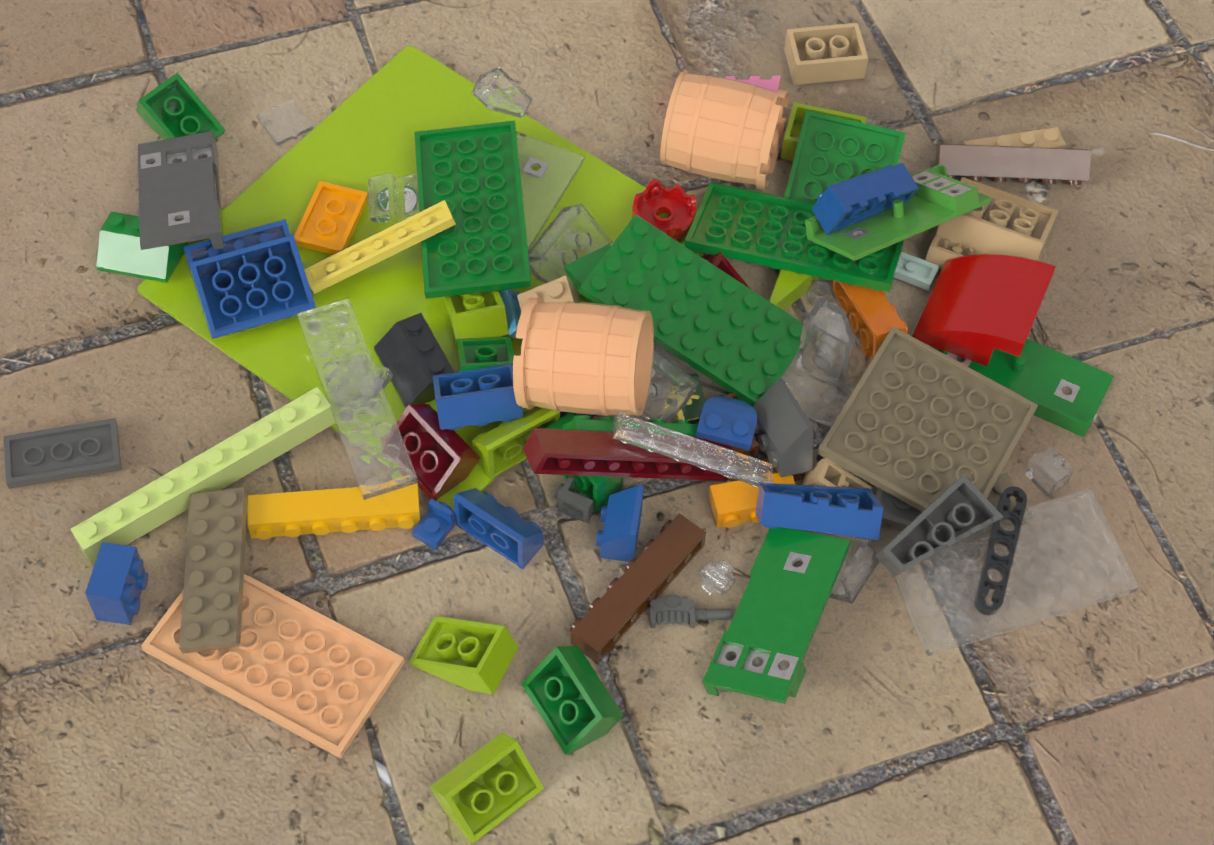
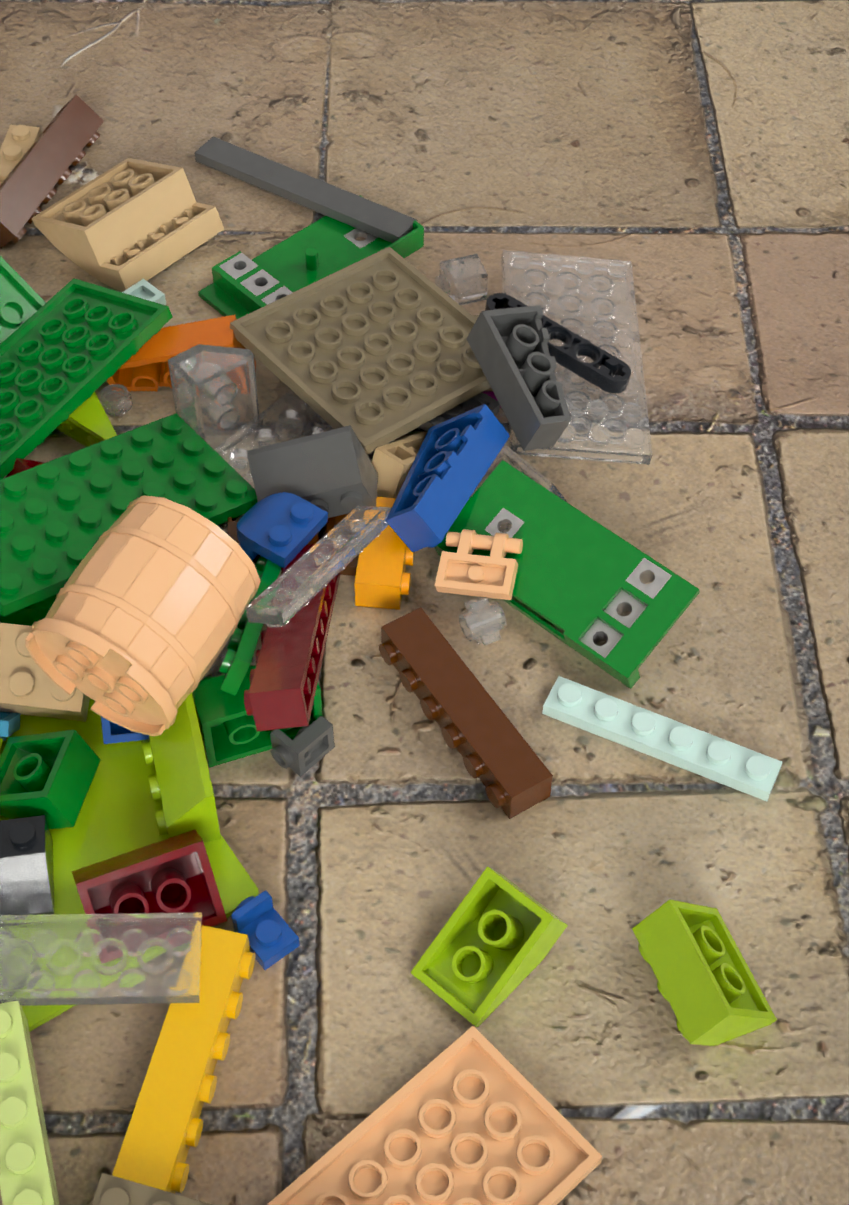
camera: 70 degrees left, 5 degrees down
(476, 397) = (105, 793): blue brick -> none
(497, 526) = (310, 844): blue slope -> none
(571, 698) = (603, 834): green slope -> none
(621, 524) = (369, 693): blue slope -> none
(669, 723) = (662, 738): none -> light aqua plate
(680, 611) = (510, 677): dark grey piece -> none
(747, 558) = (478, 574): none -> light nougat plate
(863, 197) = (33, 287): blue wedge -> none
(932, 204) = (72, 271): bright green piece -> none
(984, 305) = (235, 242): red slope -> none
(1094, 337) = (305, 190): none -> dark grey tile

